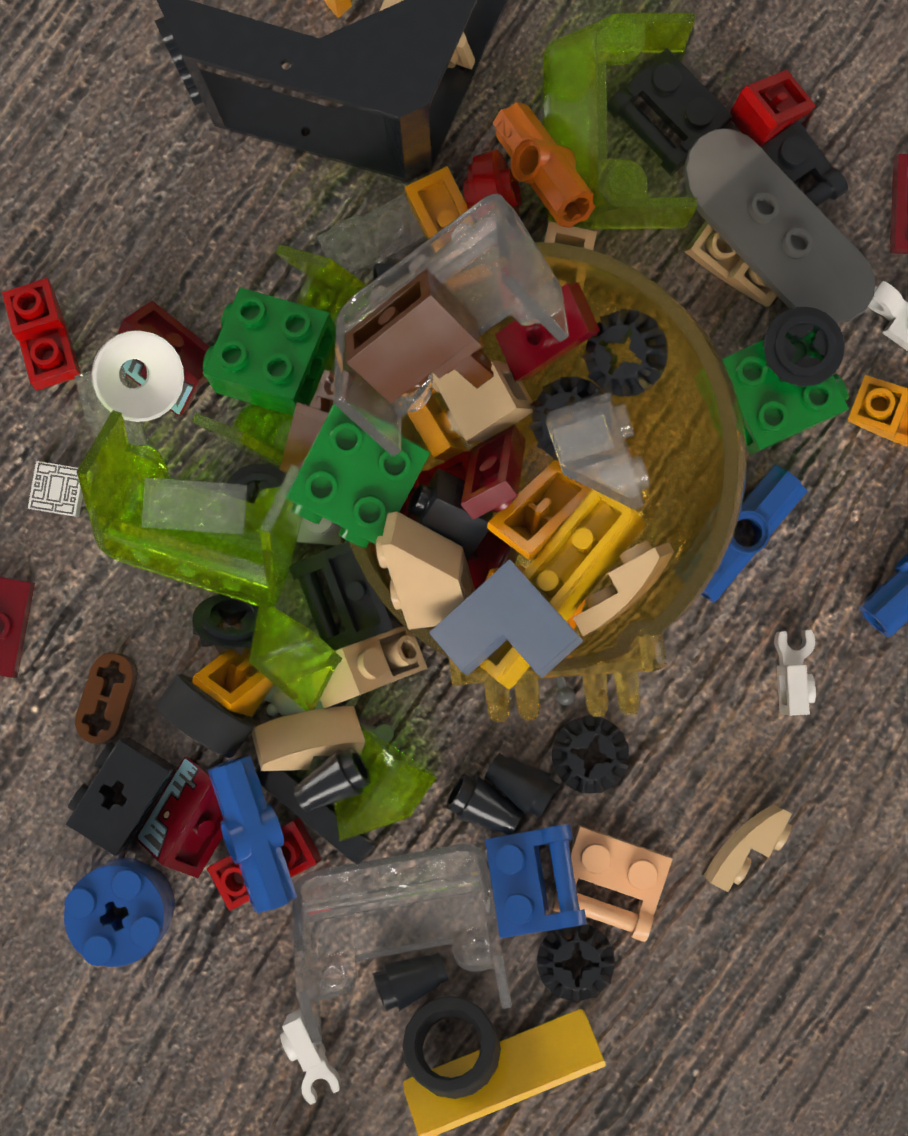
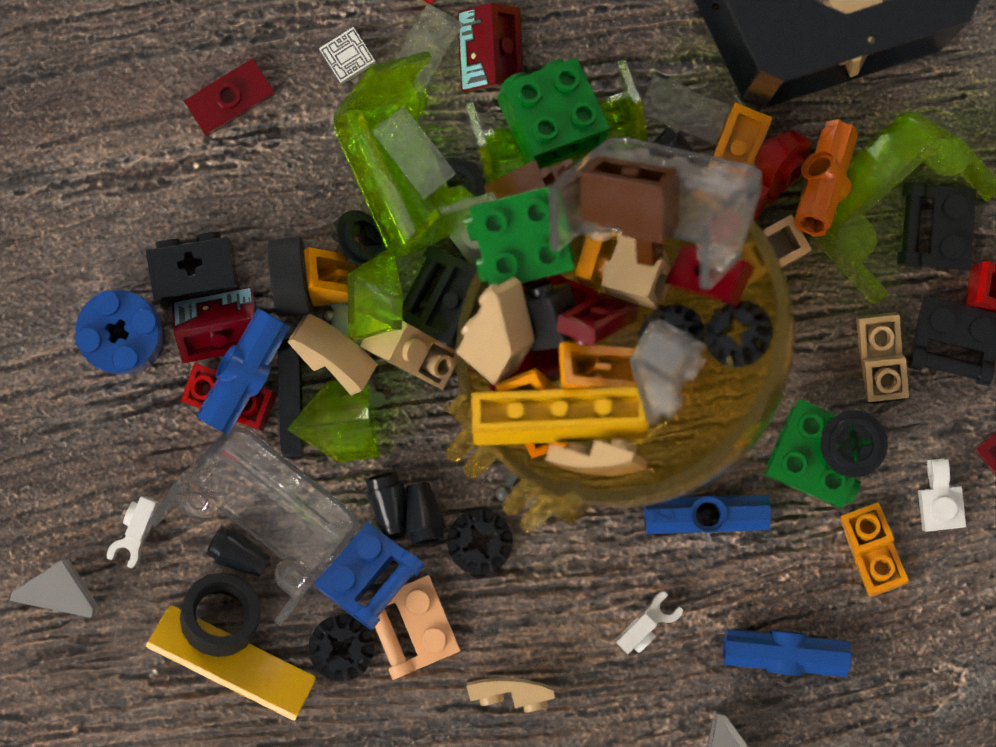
camera: 45 degrees right, 0 degrees up
(95, 694) = (240, 195): reddish brown beam -> none
(163, 378) = (468, 64): white piece -> none
(333, 780) = (322, 392): black cone -> none
(504, 610) = (518, 397): sand blue tile -> none
(776, 226) = (919, 361): dark grey piece -> none

